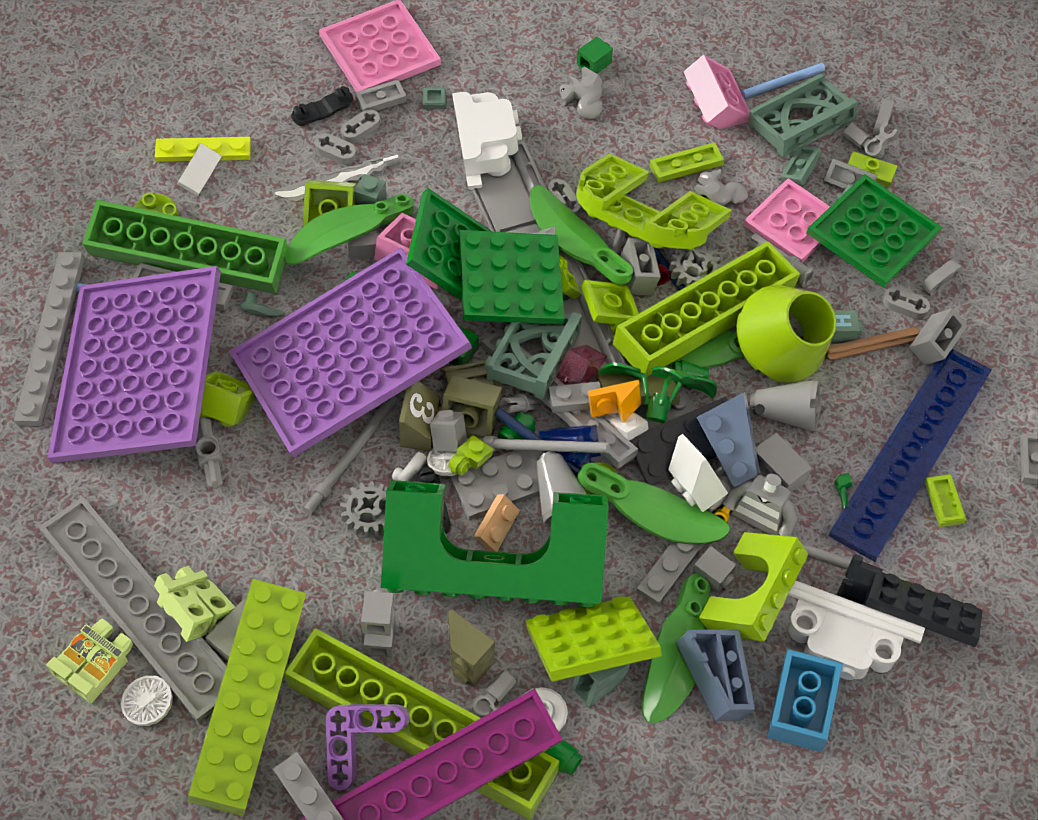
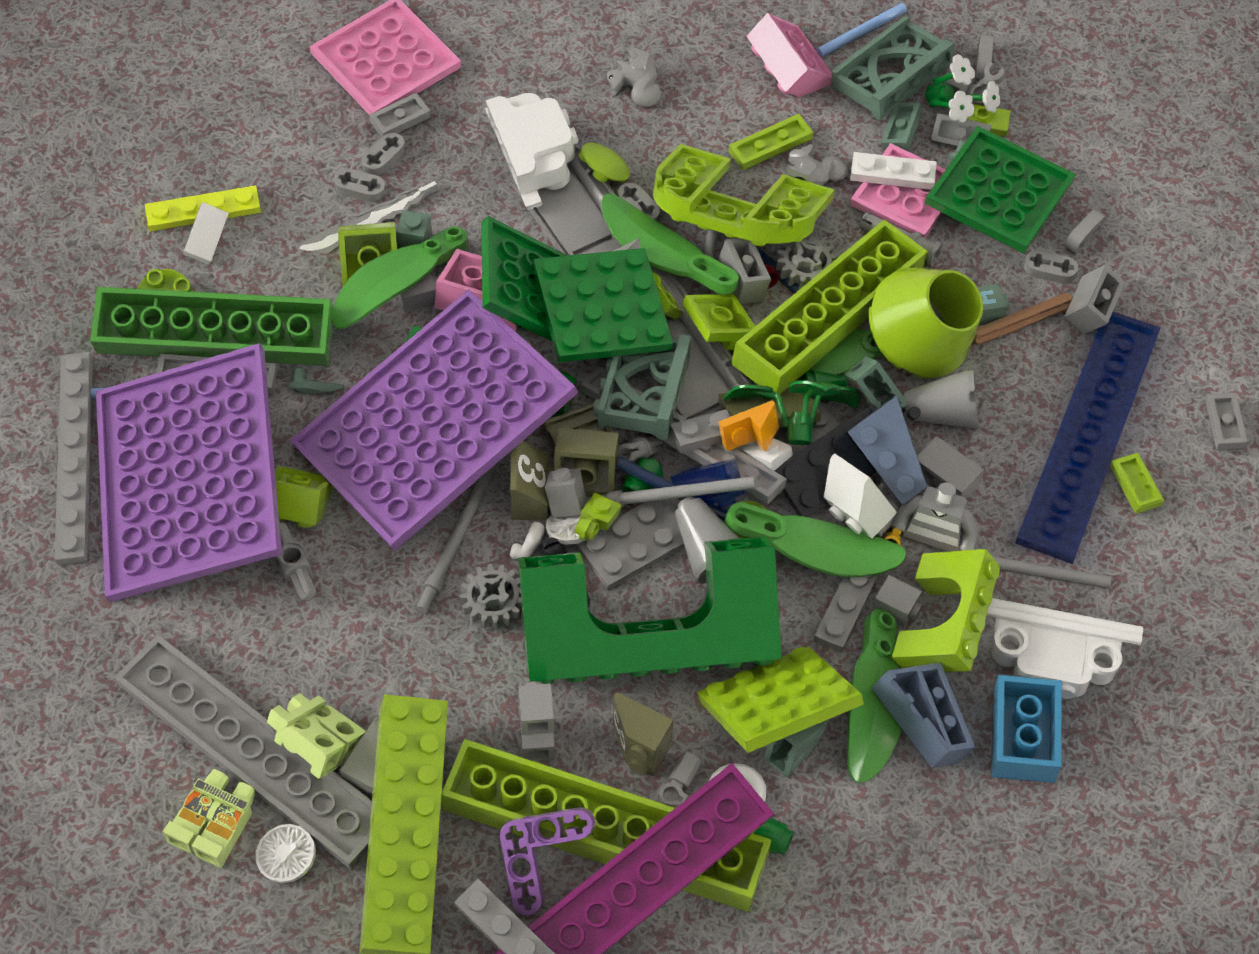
camera: 10 degrees left, 0 degrees up
(326, 107) = (334, 139): black piece -> none
(434, 97) = (462, 108): sand green tile -> none
(496, 523) = (642, 588): light nougat plate -> none
(542, 159) = (604, 162): none -> lime dish
(580, 365) = (700, 394): clear pink slope -> none
(595, 55) = (639, 31): green brick -> none
(730, 379) = (872, 383): none -> sand green torso
(785, 201) = (893, 171): none -> white plate
(841, 483) = (1018, 482): green hand -> none
(852, 152) = (960, 104): none -> white plant
(910, 602) = (1121, 601): black hinge -> none

